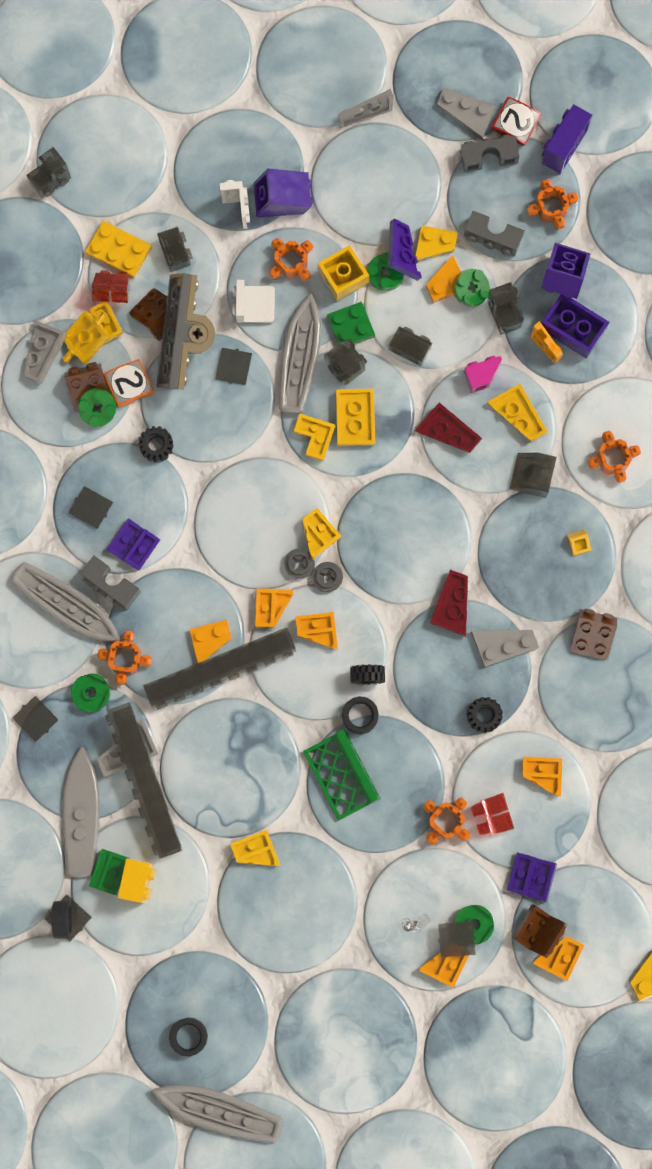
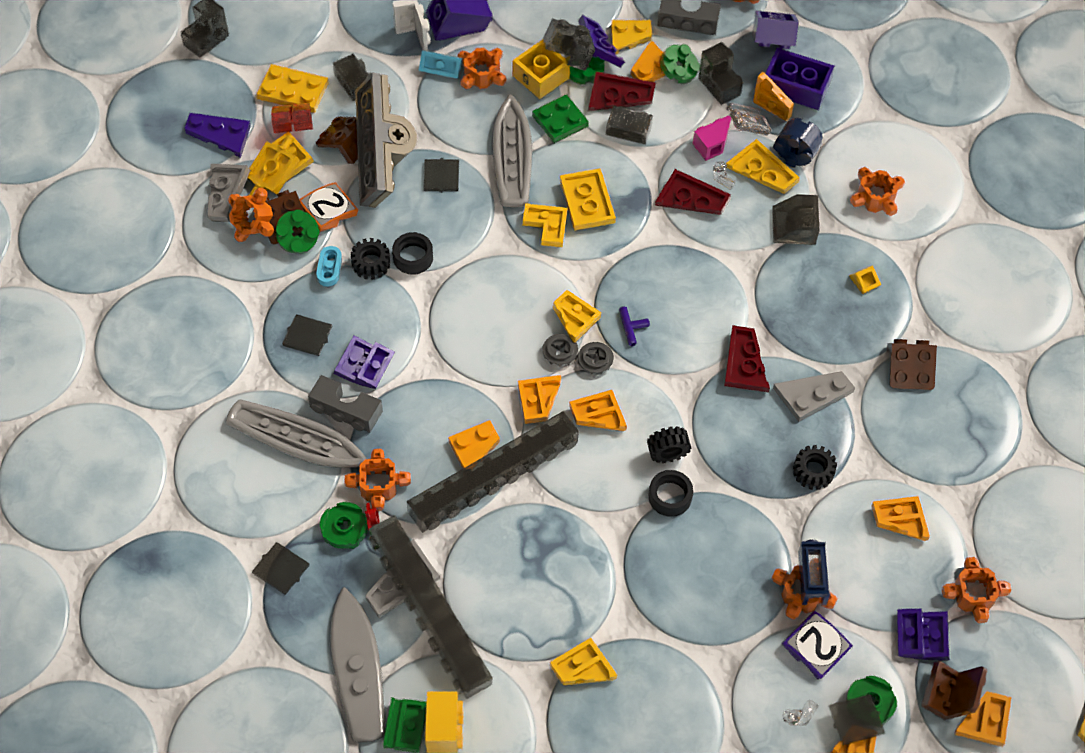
camera: 15 degrees left, 20 degrees down
(48, 285) = (221, 131): none -> dark purple wing
(56, 395) = (239, 218): none -> orange piece
(113, 692) = (372, 516): none -> red plate
(119, 445) = (327, 267): none -> medium azure plate
(195, 431) = (412, 239): none -> black tyre
(254, 248) = (440, 64): none -> medium azure plate
(254, 303) = (450, 113): white bracket -> none
(345, 362) = (564, 146): clear smoke brick -> none
(357, 767) = (681, 547): green fence -> none
(363, 550) = (629, 325): none -> dark purple piece
(375, 254) = (571, 41): none -> clear smoke brick
(409, 307) = (619, 91): none -> dark red wing
(444, 869) = (817, 644): none -> slope
(454, 814) = (813, 571): none -> dark blue window
(479, 412) = (720, 175): none -> clear arm
(495, 824) = (860, 571): clear red hips -> none
(518, 361) = (748, 119): none -> clear plate
(555, 396) = (798, 142): none -> dark blue brick
(605, 852) = (970, 574): none -> orange piece

